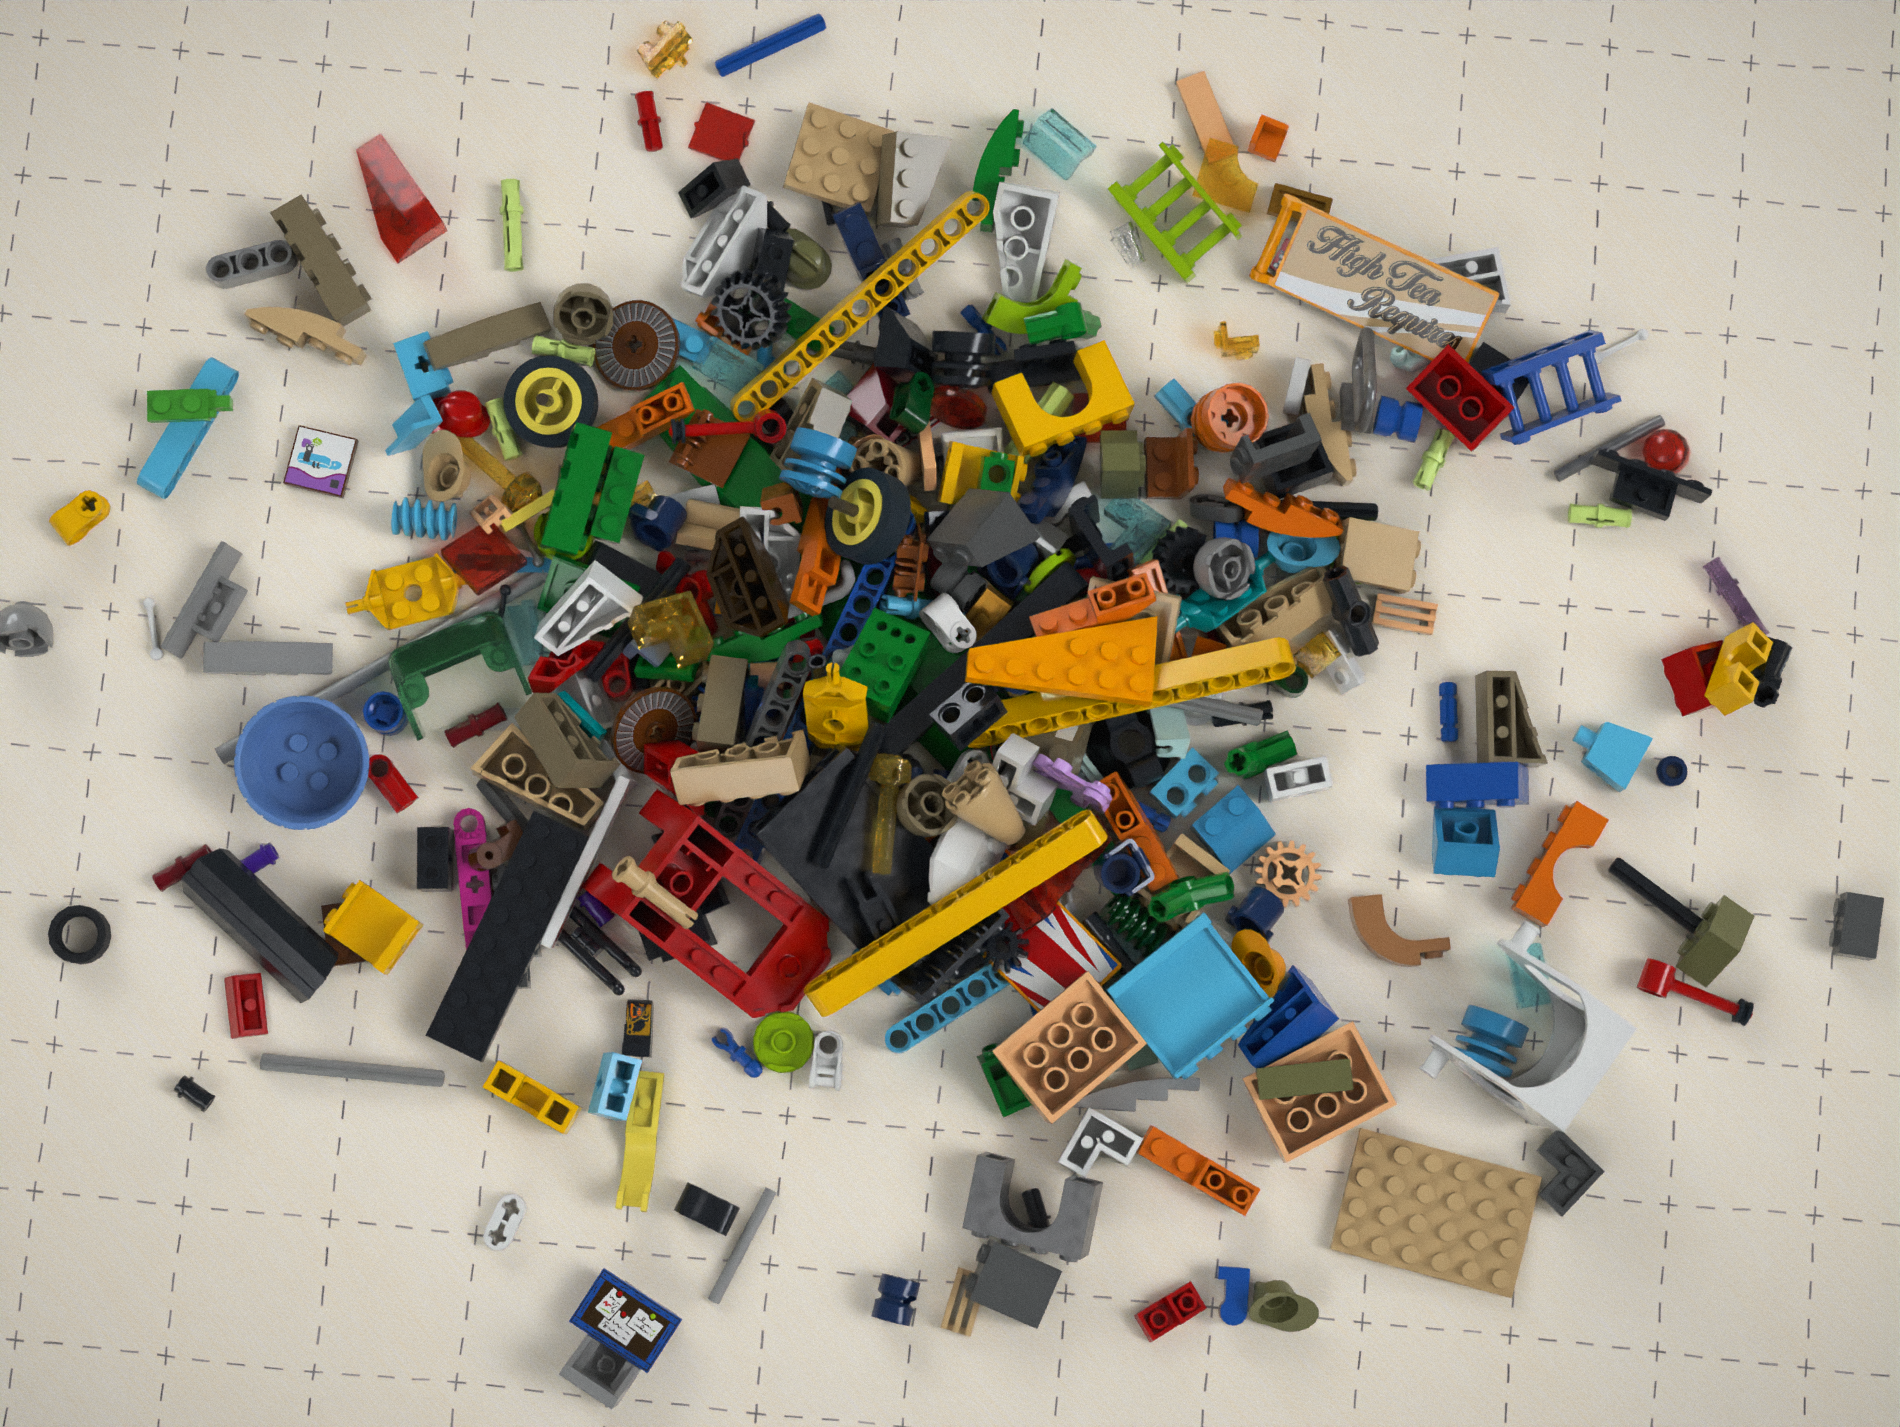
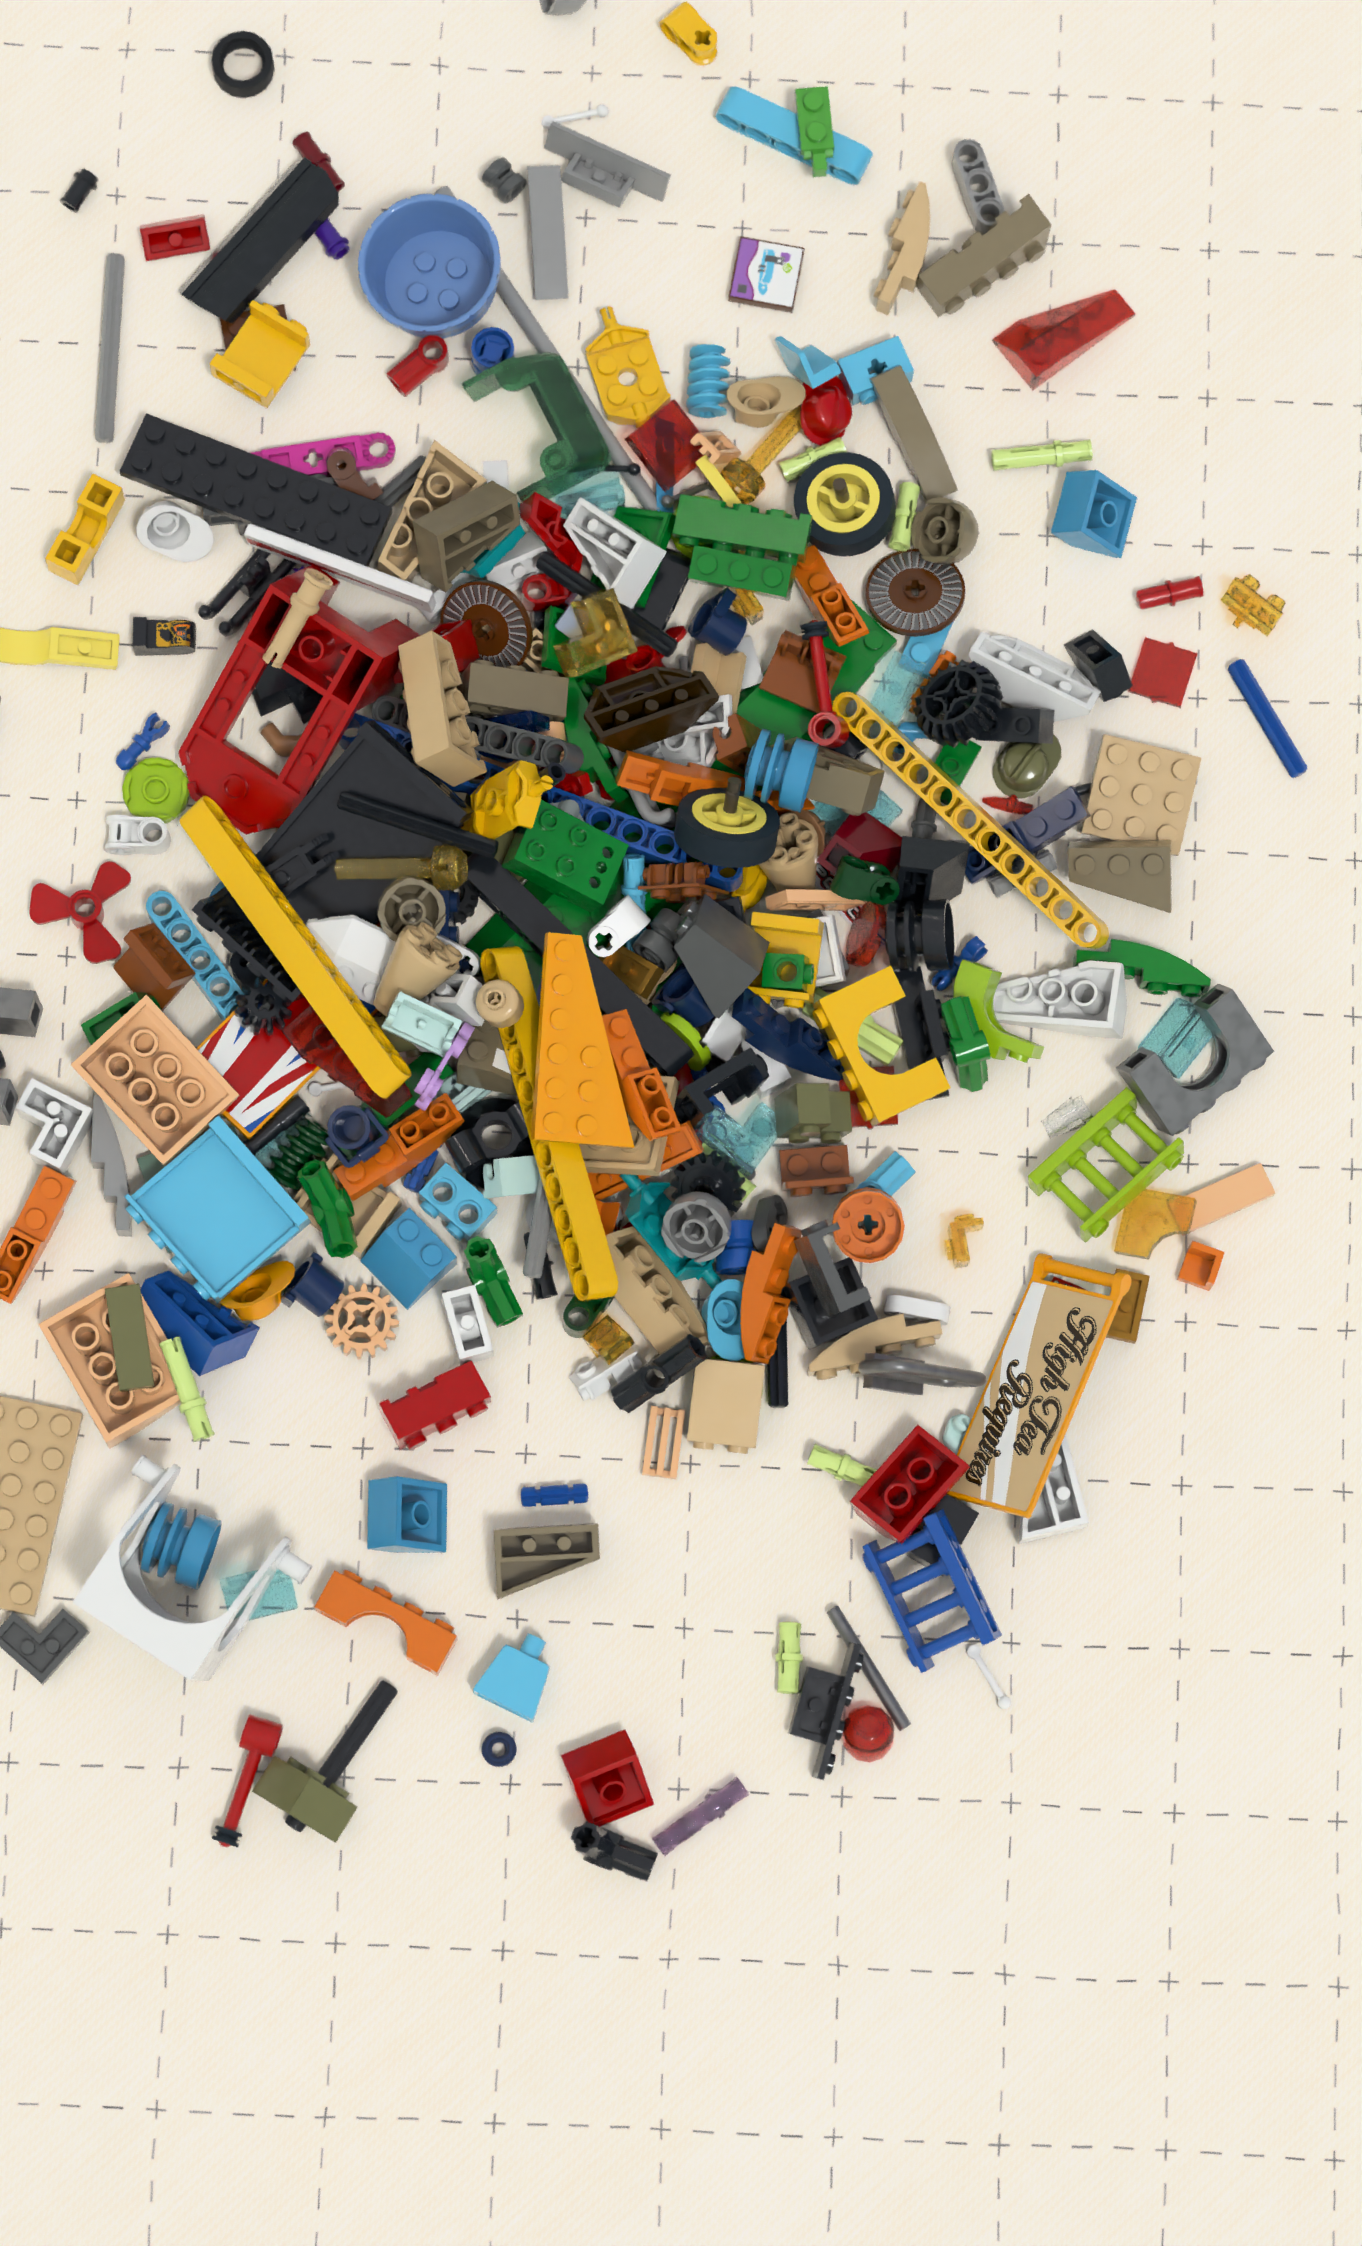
camera: 80 degrees right, 5 degrees down
(218, 690) = (504, 180): none -> dark grey wheel
(434, 859) = (337, 415): black brick -> none
(475, 725) = (486, 450): dark red pin -> none
(538, 1015) = (174, 532): none -> white piece
(571, 182) = (1094, 513): none -> dark azure slope
(614, 1086) = (99, 613): medium azure brick -> none
(747, 921) = (280, 744): none -> medium nougat arm
(775, 220) = (1069, 730): black pin -> none
(838, 275) = (1008, 804): none -> clear red helmet
(889, 1141) = (51, 905): none -> red piece
(955, 1047) = (153, 965): none -> dark orange bracket
(968, 714) = (512, 946): black brick -> none
(1031, 718) = (508, 1001): none -> tan head
(1041, 799) = (421, 1024): none -> light aqua hinge
(1080, 93) = (1238, 1050): none -> flat silver arch
(1367, 1024) = (191, 1402): none -> yellowish green pin
(1368, 811) = (436, 1406): none -> red wedge
(1377, 936) = (298, 1420): medium nougat arch -> none
(1400, 419) = (885, 1421): blue wheel -> none
(1477, 785) = (470, 1527): blue wedge -> none
(1731, 680) = (602, 1801): yellow arch -> none
(1856, 926) = (329, 1963): dark grey brick -> none

